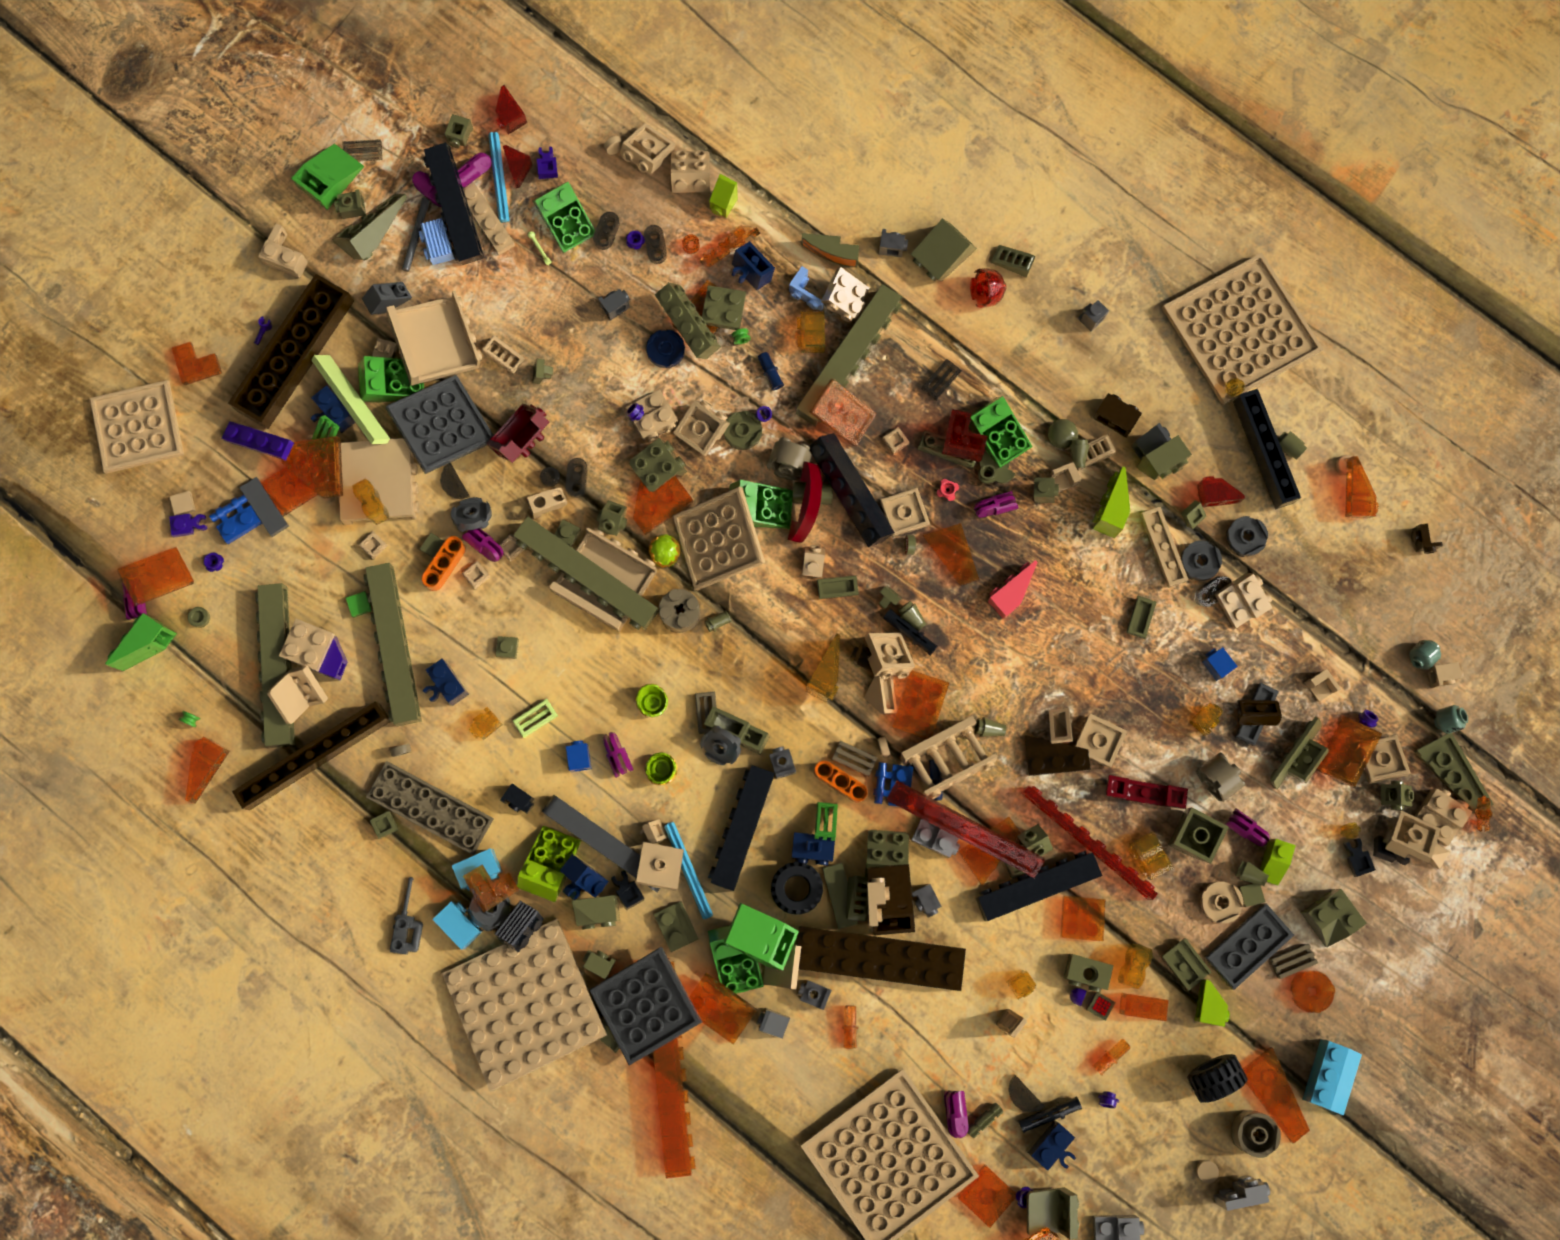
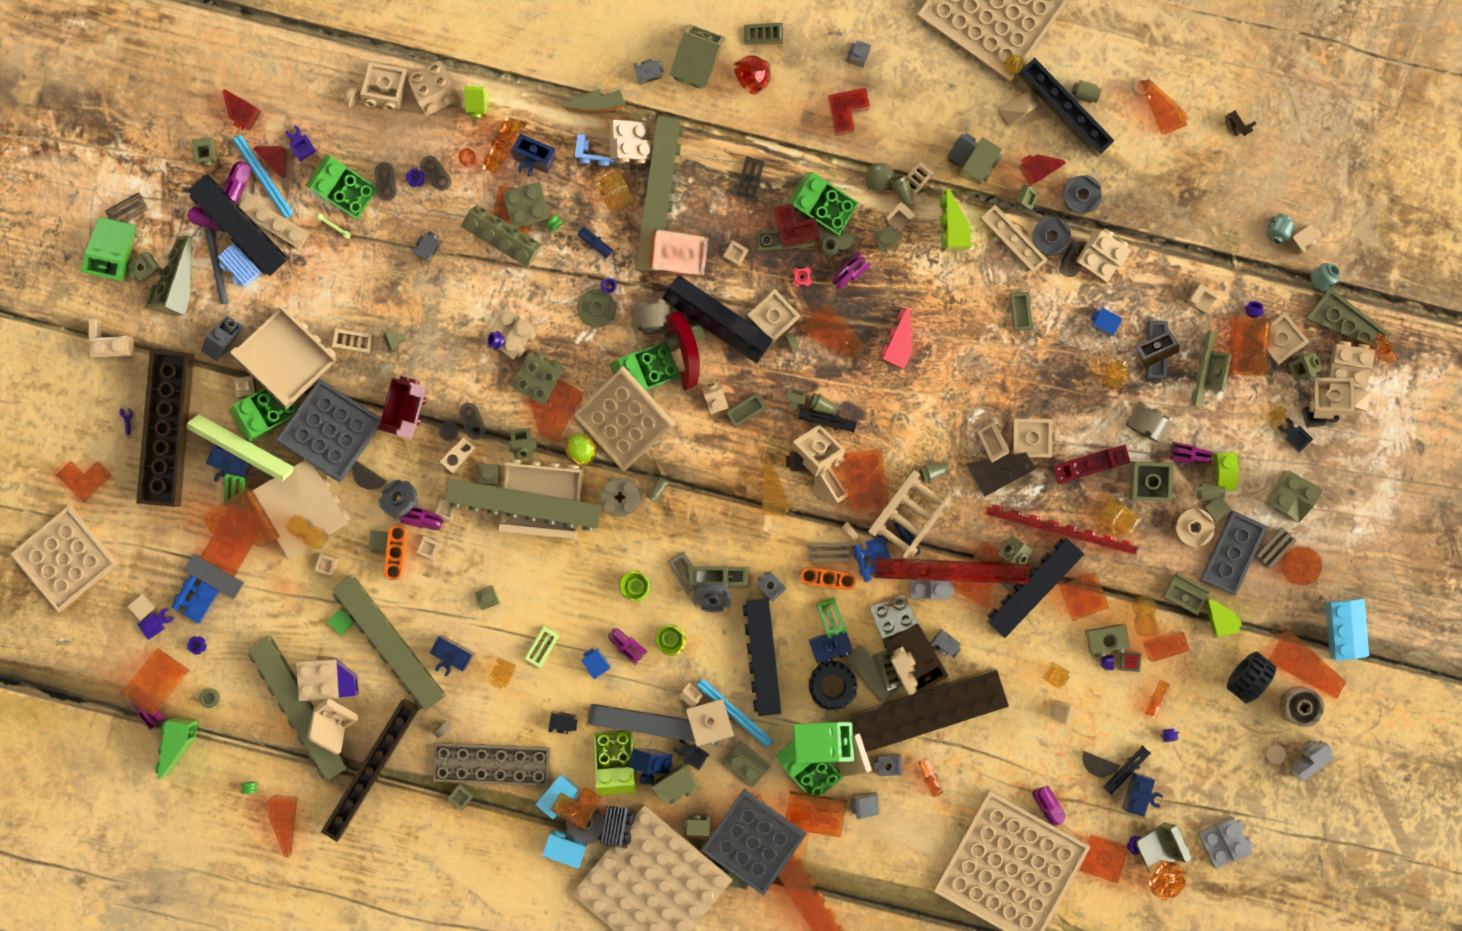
camera: 25 degrees left, 10 degrees up
(257, 440) = (178, 522): dark purple plate -> none
(401, 927) = (518, 872): dark grey piece -> none
(663, 354) = (493, 271): dark blue tile -> none
(702, 426) = (560, 323): tan plate -> none
(984, 1120) = (1075, 799): olive axle -> none
(1060, 353) = (843, 105): none -> clear red brick
(1117, 414) = (921, 137): dark brown brick -> none
(1221, 432) = (1019, 107): none -> tan slope

